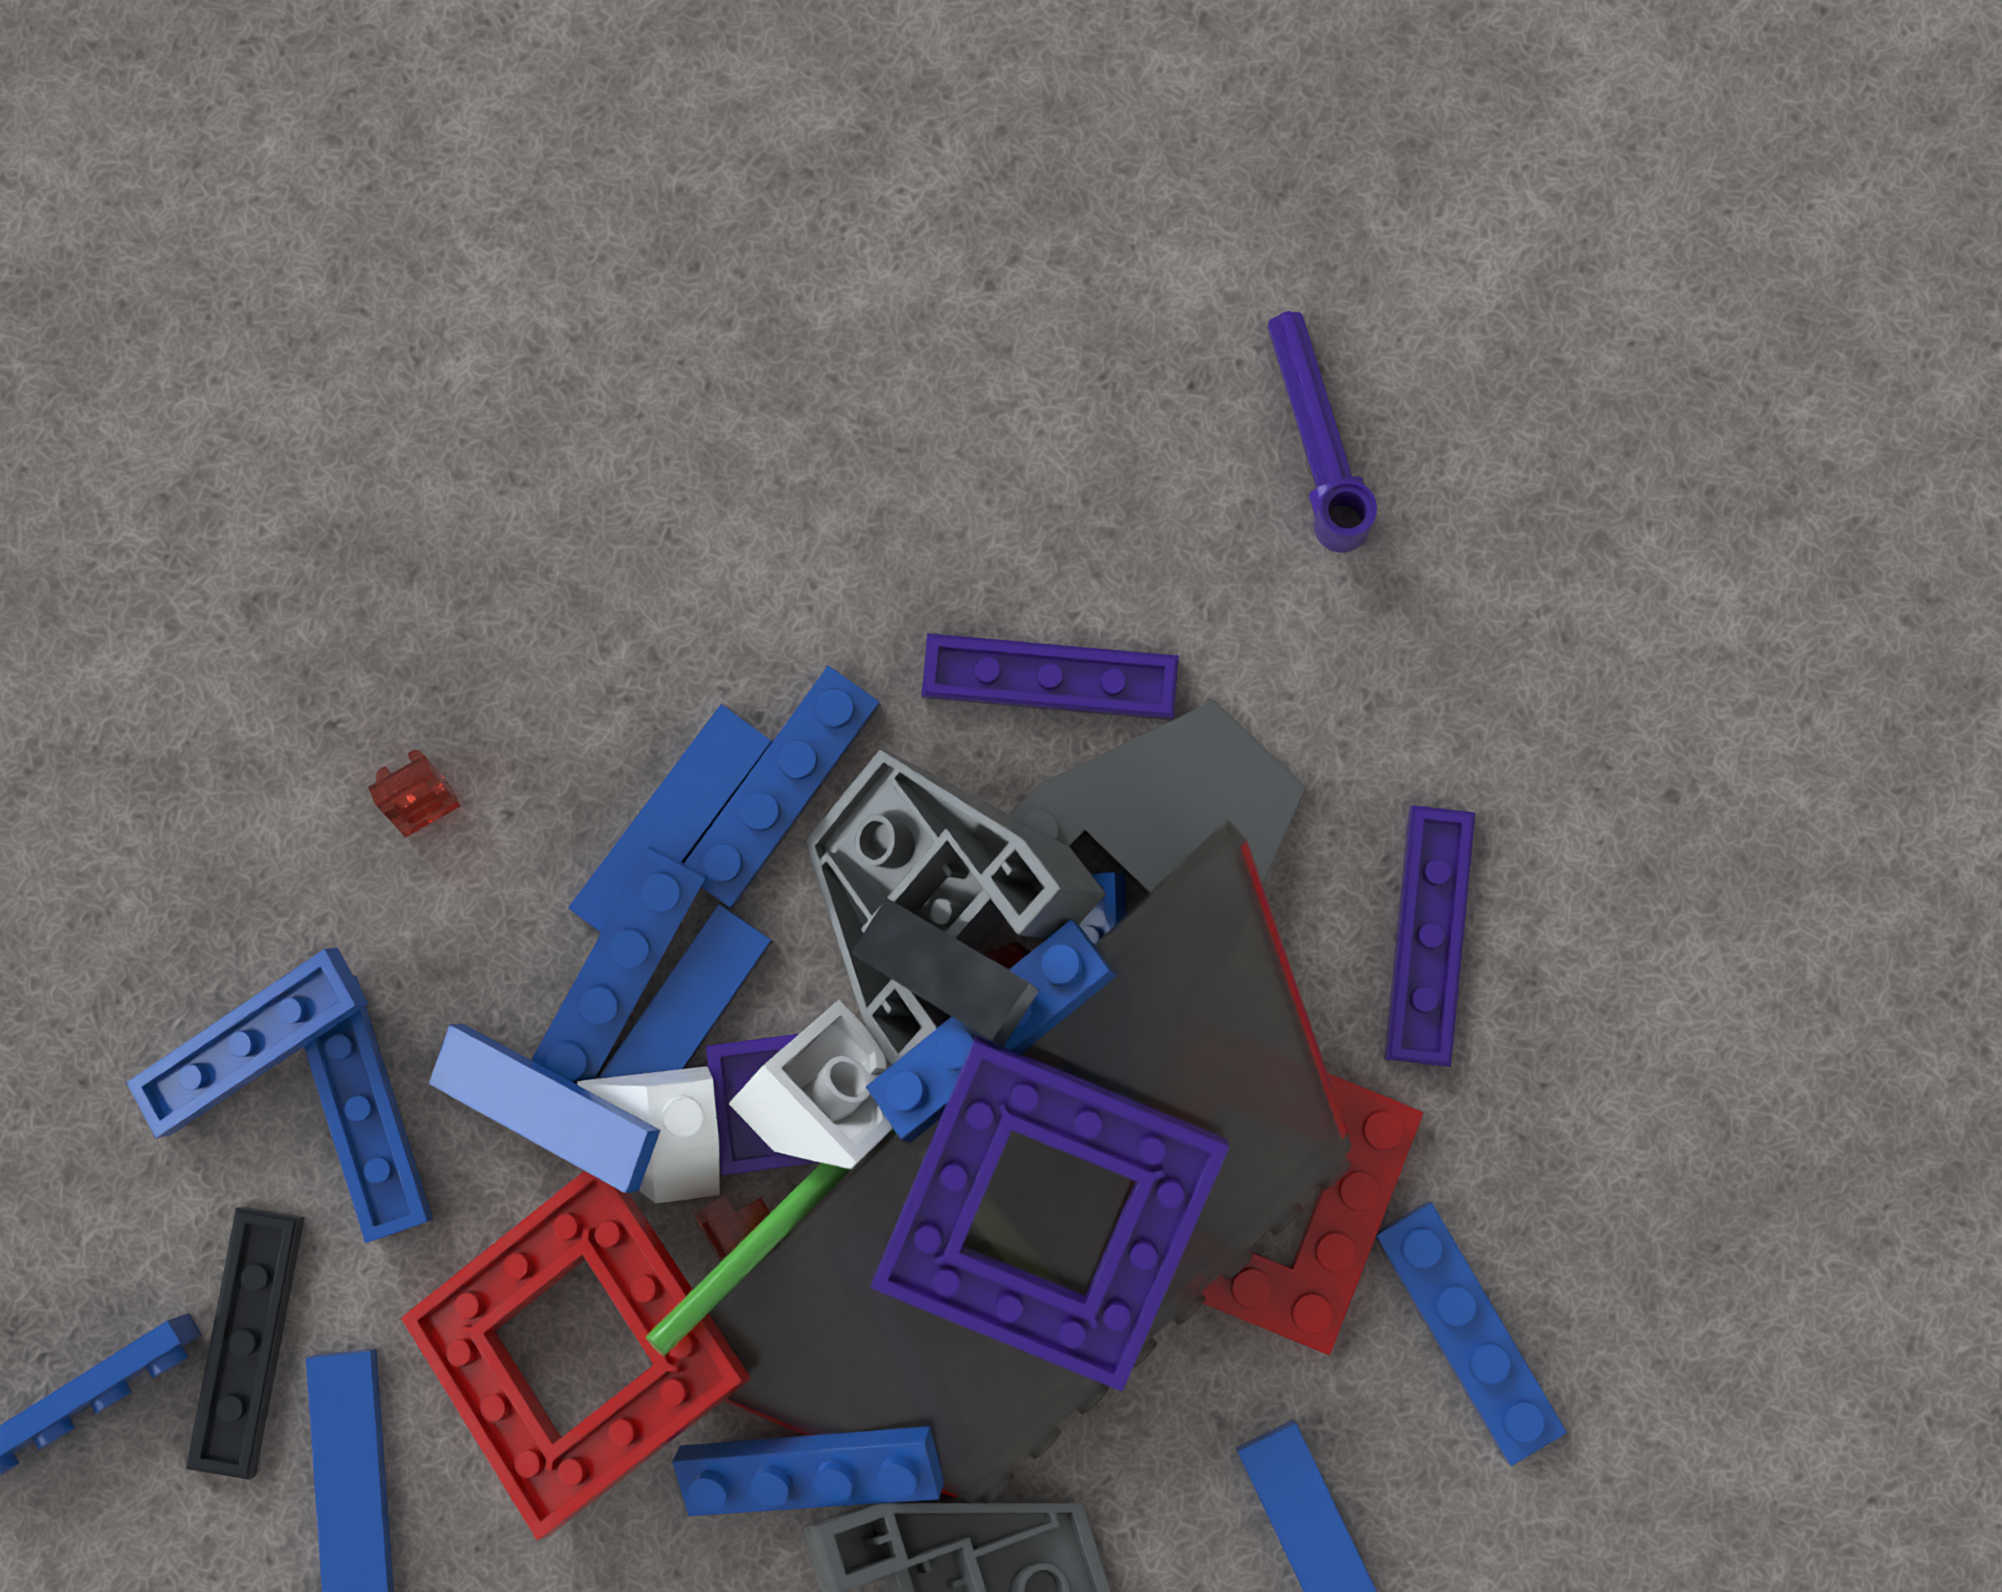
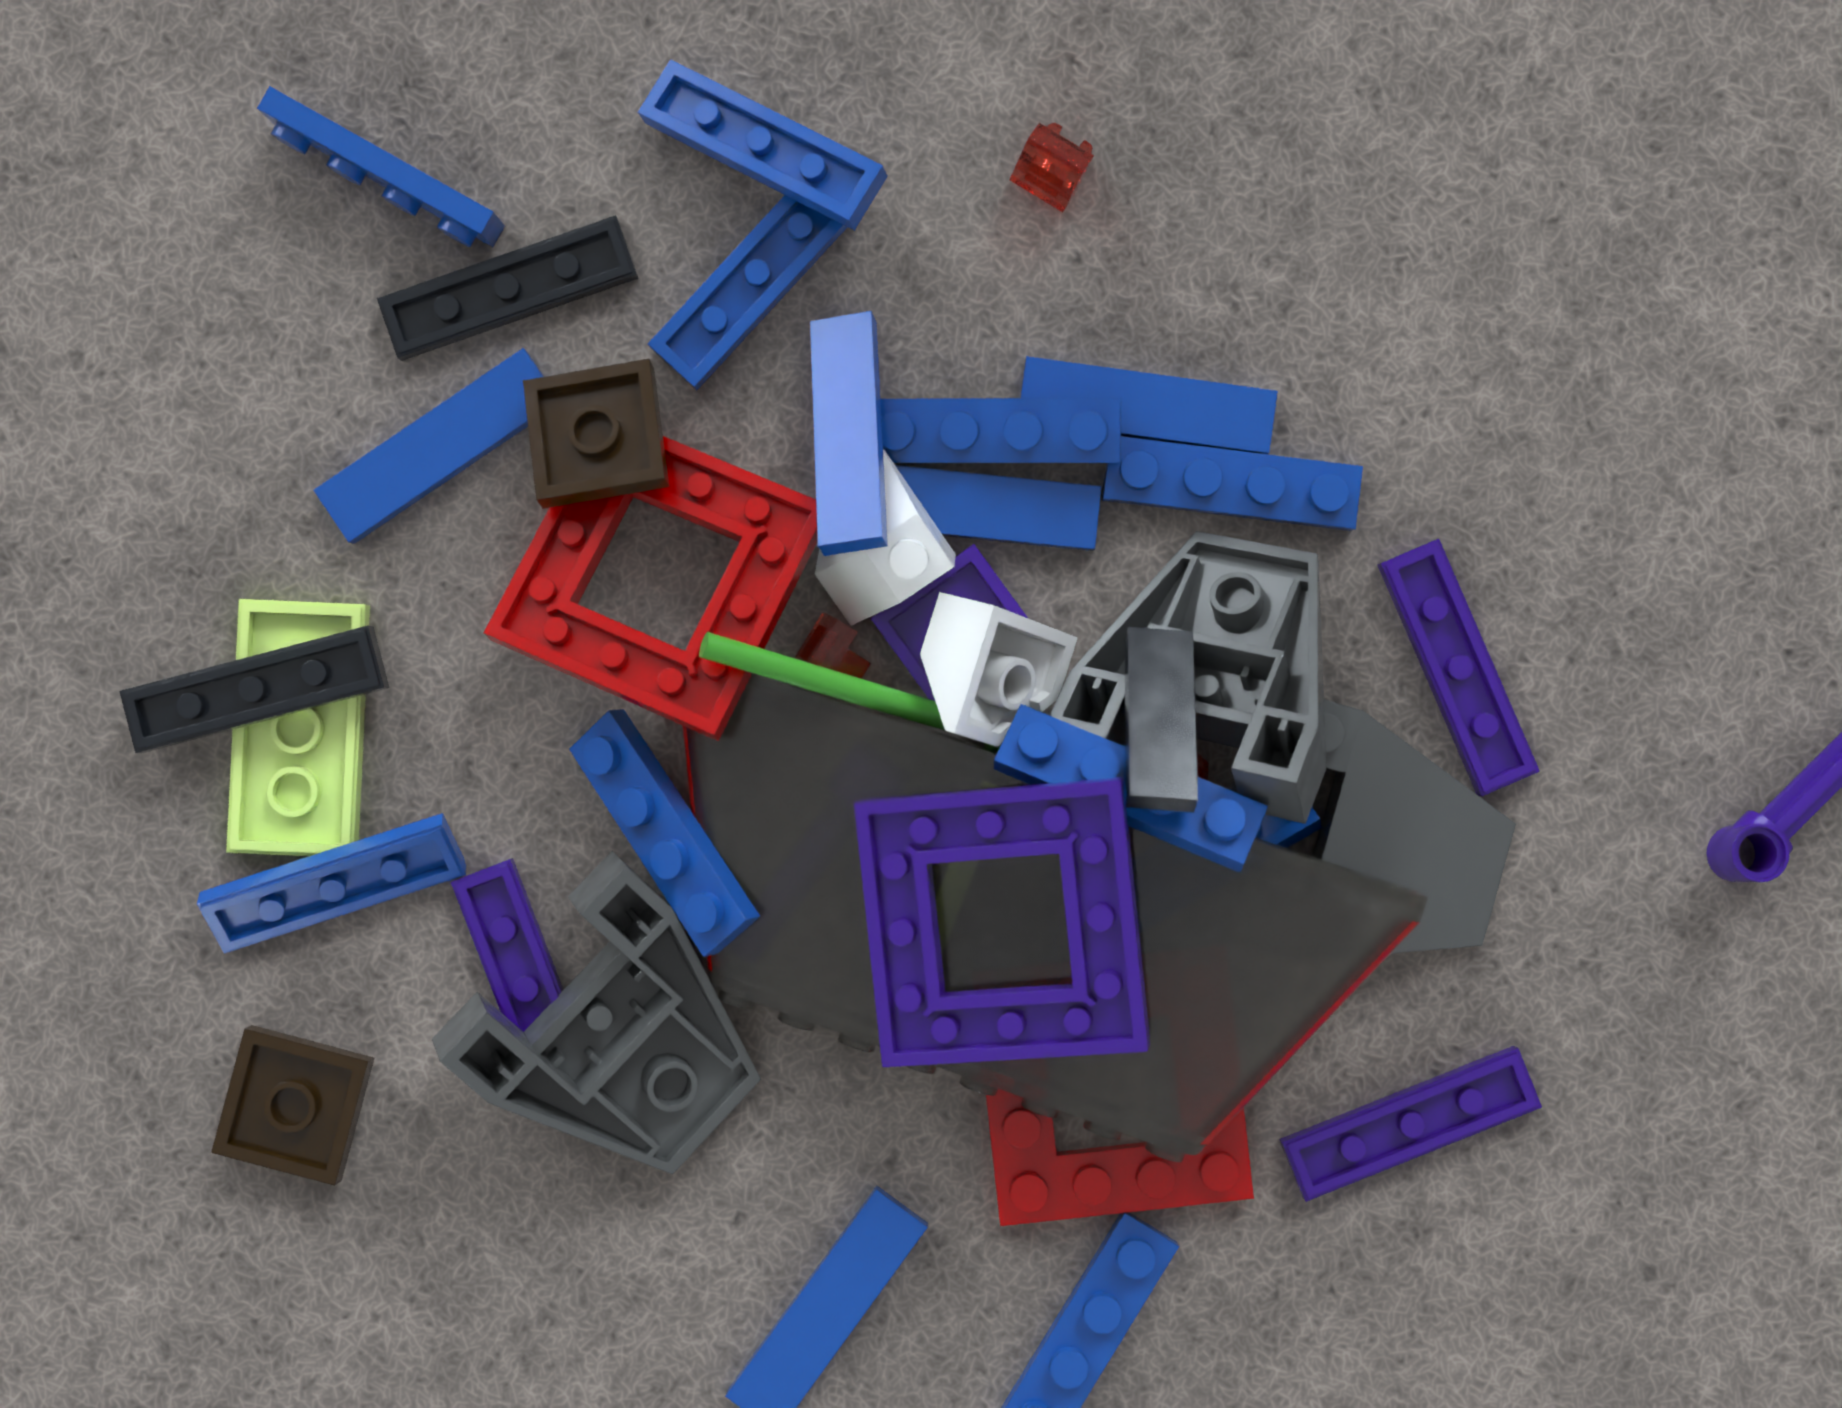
camera: 60 degrees right, 5 degrees up
(417, 1337) = (595, 433): none -> dark brown plate

